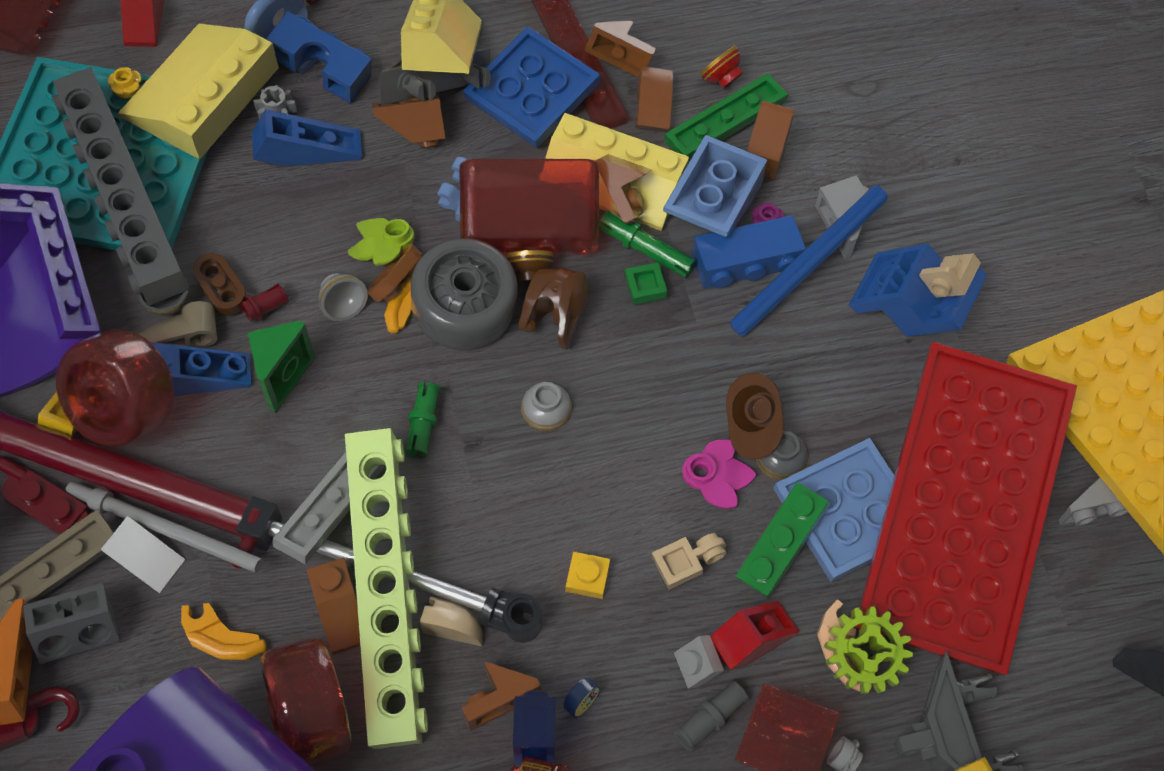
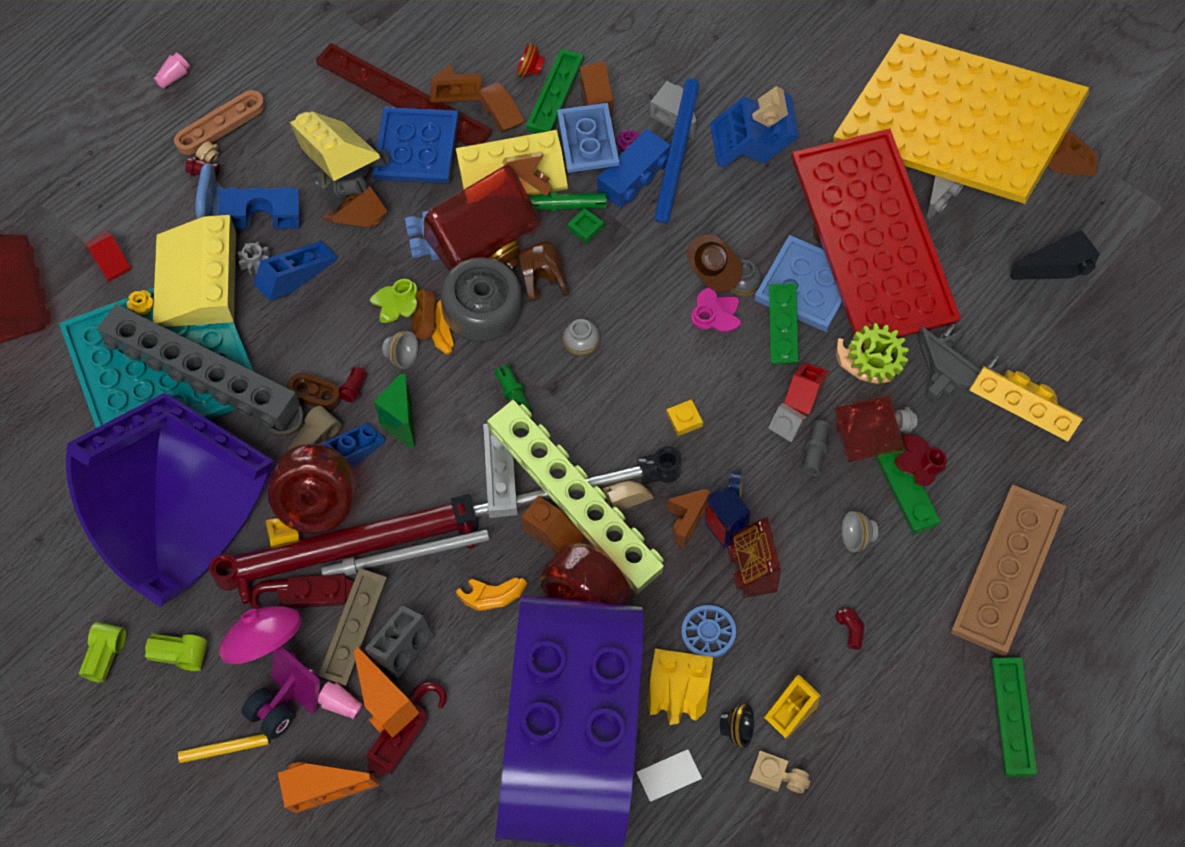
camera: 30 degrees left, 0 degrees up
(143, 554) = (407, 577): white sticker -> none
(680, 562) = (734, 374): tan plate -> none

